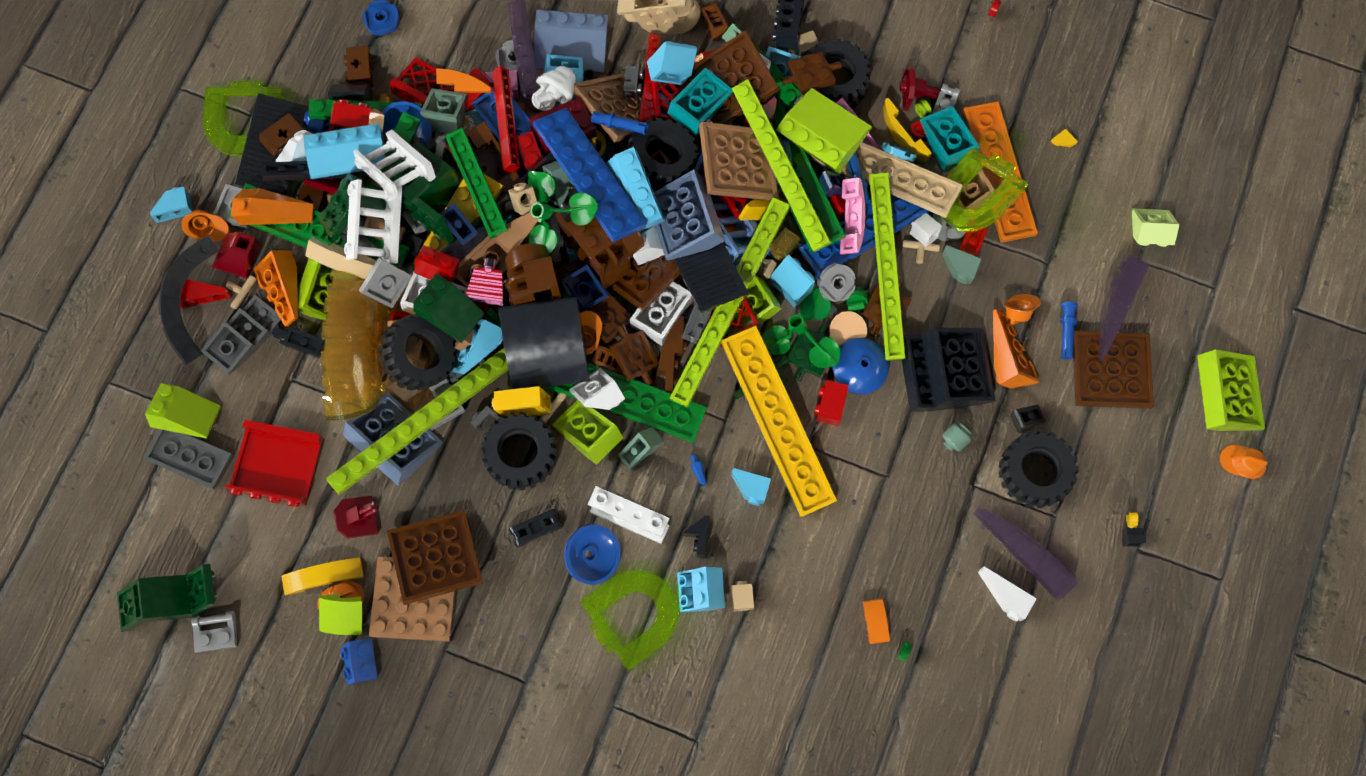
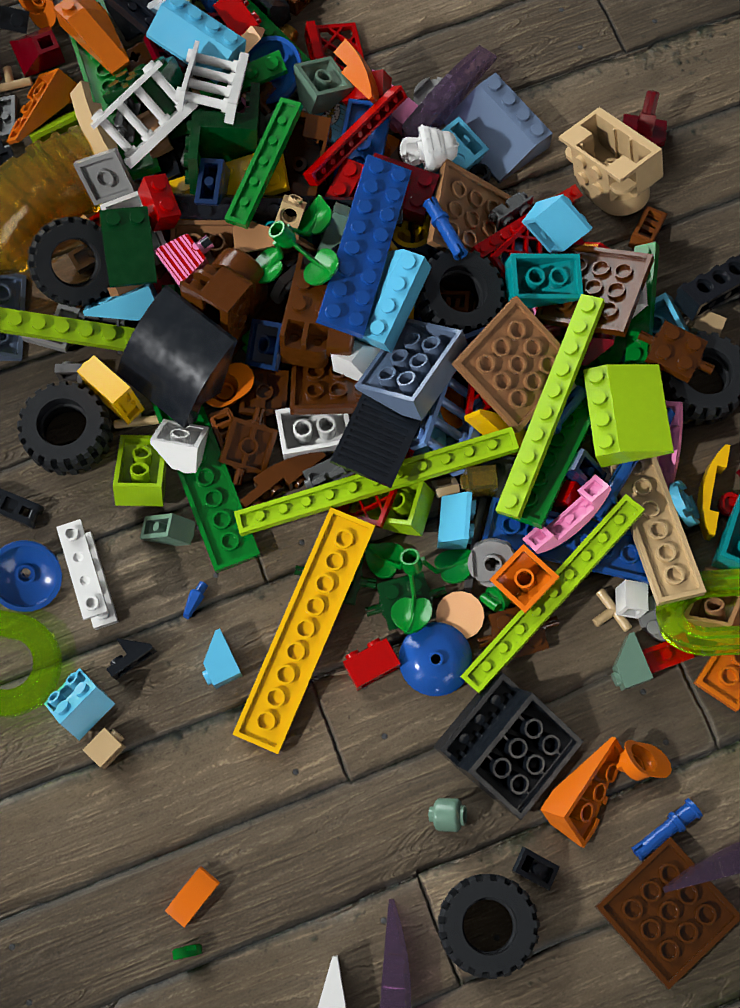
camera: 50 degrees right, 0 degrees up
(866, 273) = (524, 578): none -> orange slope

